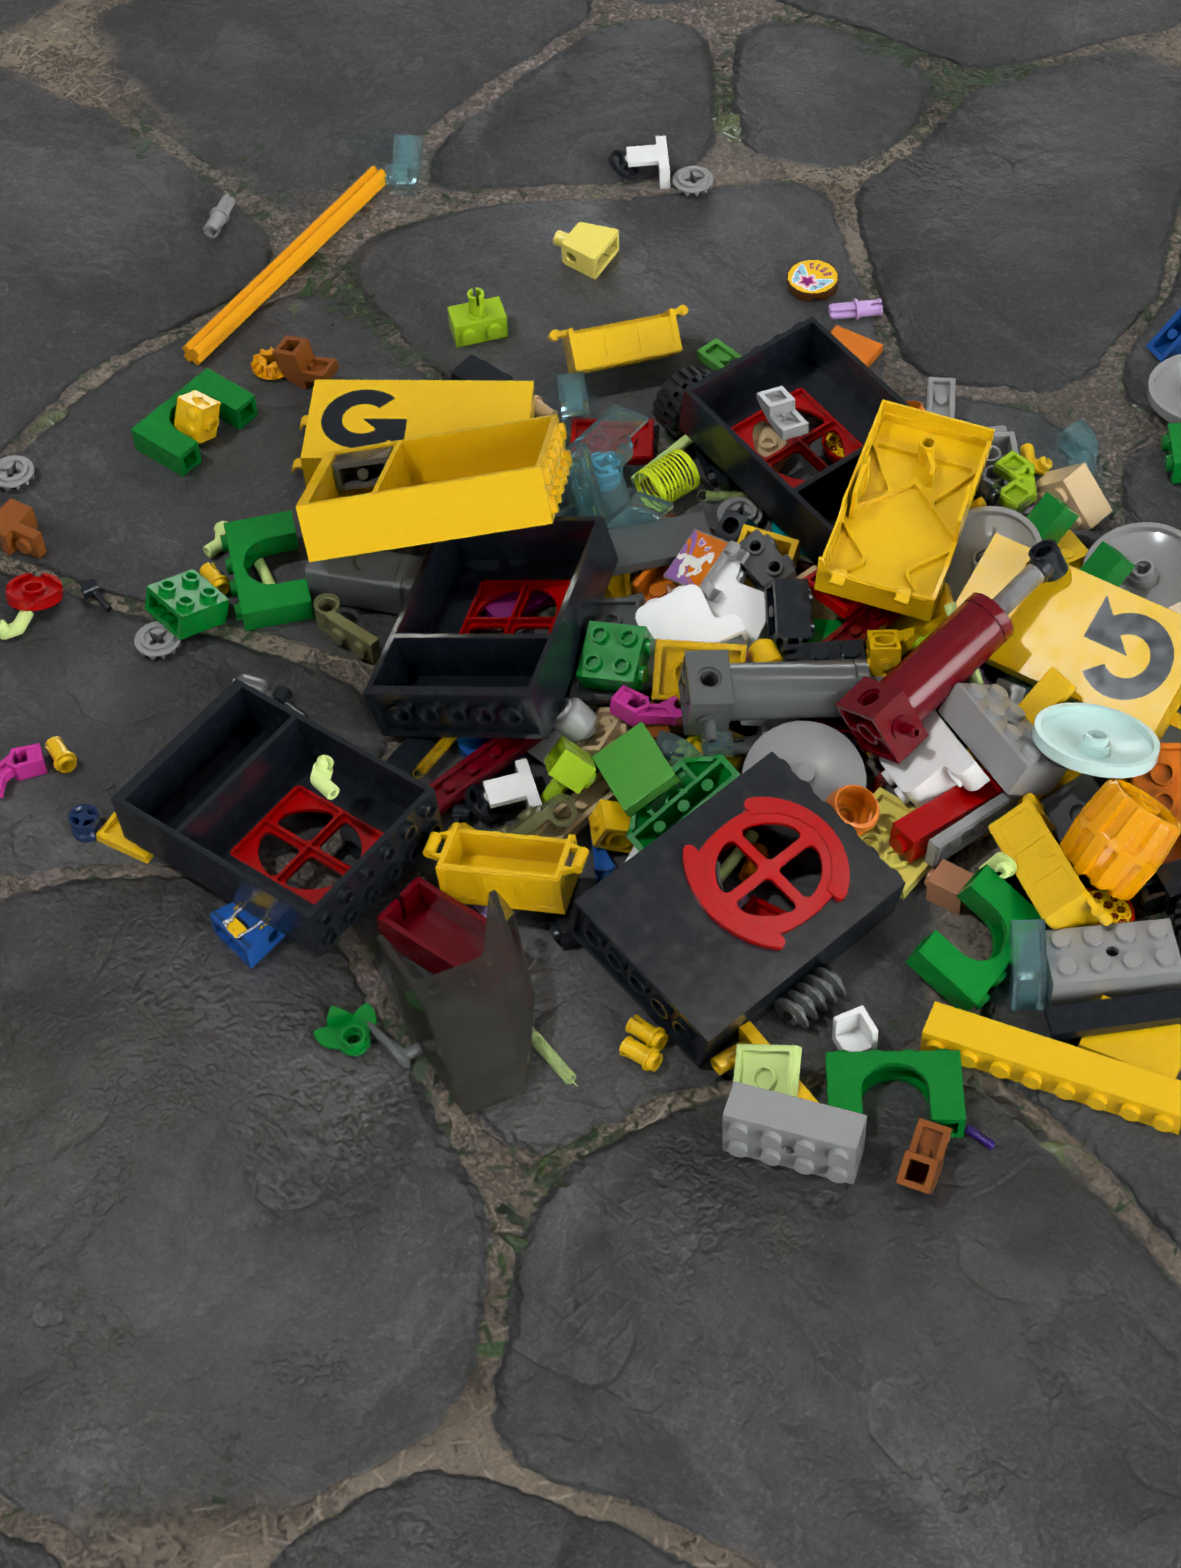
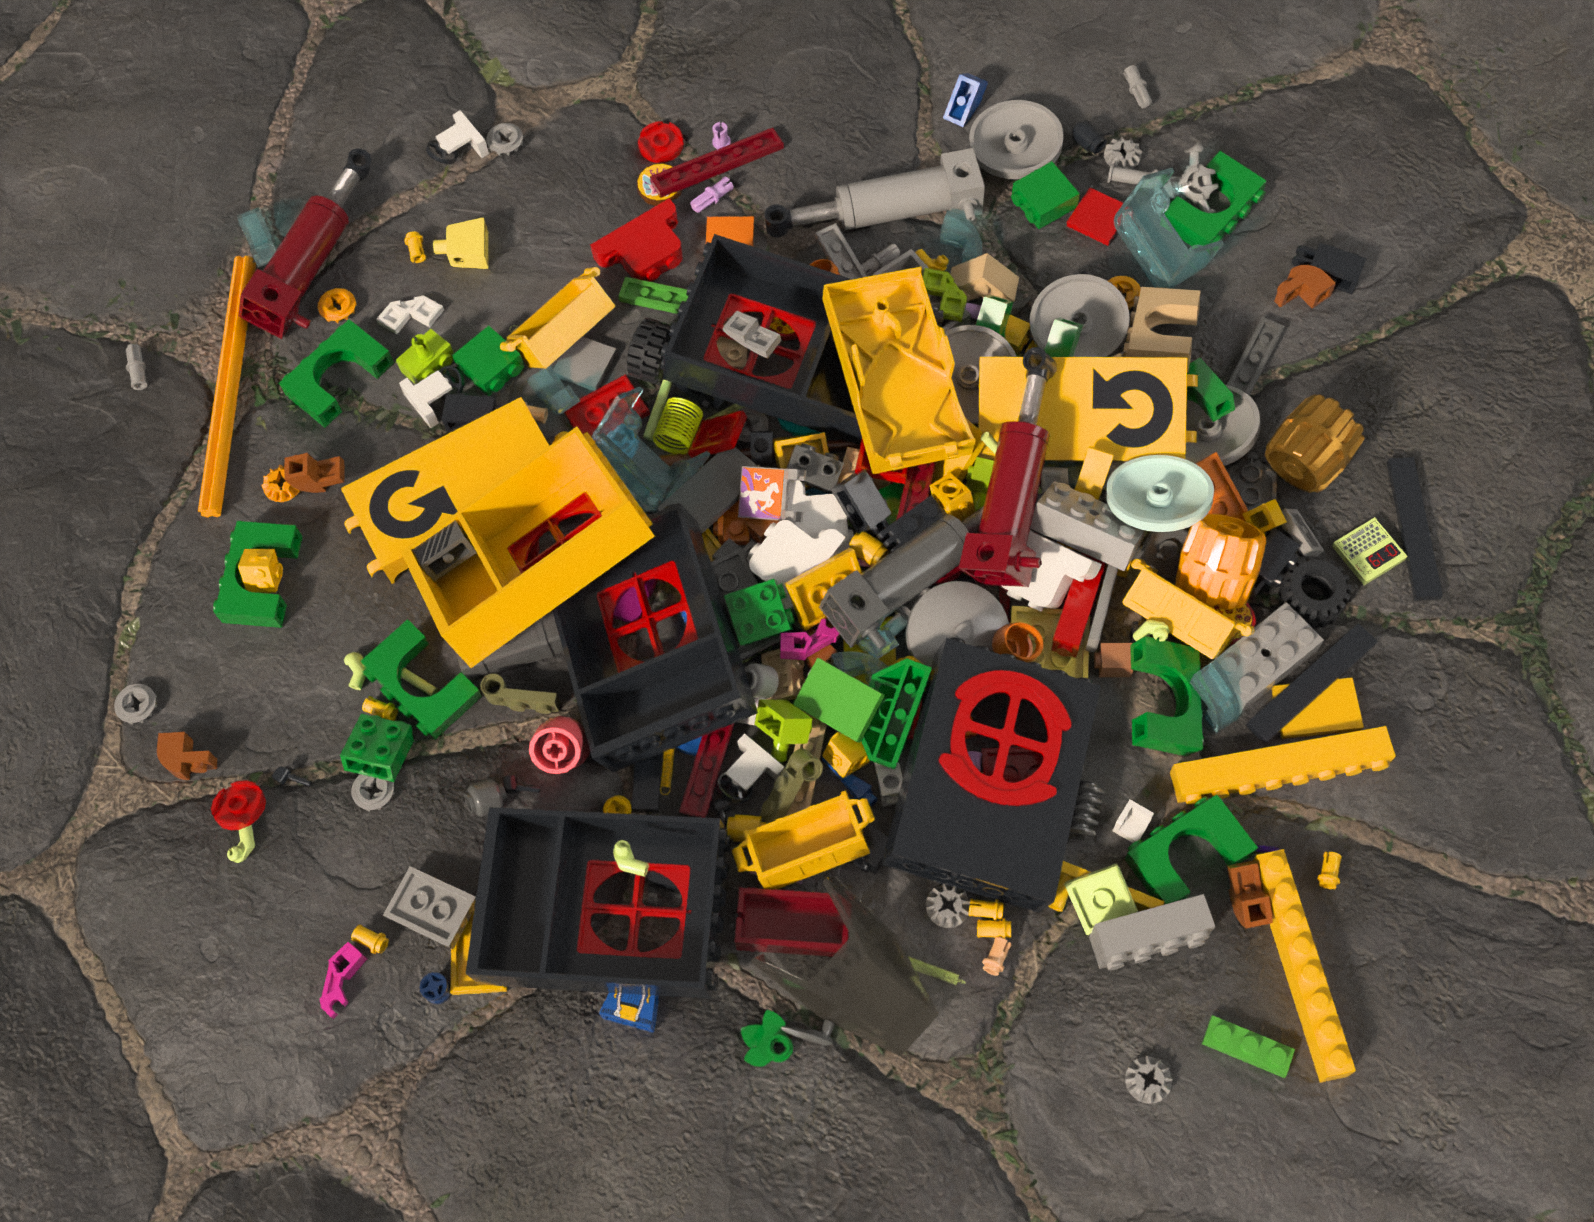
camera: 30 degrees left, 15 degrees up
(125, 748) = (431, 907): none -> light grey plate
(342, 672) = (559, 745): none -> coral brick
(377, 206) = (275, 293): none -> dark red piece
(411, 278) = (345, 344): none -> green arch
(423, 242) = (340, 296): none -> light orange gear
(462, 345) = (430, 390): none -> white piece
(507, 283) = (399, 313): none -> white tile
(529, 350) = (486, 363): none -> green brick
(542, 226) = (414, 243): none -> yellow pin
(598, 1013) = (946, 917): none -> light grey gear
(618, 1081) = (994, 962): none -> light nougat pin
(623, 388) = (585, 363): none -> light grey tile
(689, 1283) = (1135, 1082): none -> light grey gear
(702, 501) = (718, 434): none -> red tile
(753, 317) = (643, 245): none -> red brick
(821, 1299) = (1248, 1046): none -> bright green plate
(841, 246) = (660, 142): none -> red tile
(882, 284) = (716, 162): none -> dark red tile
(901, 269) = (721, 137): none -> lavender pin
(931, 1256) = (1304, 970): none -> yellow brick
(1027, 1195) = (1330, 870): none -> yellow pin
(1101, 399) = (951, 187): none -> light grey piece

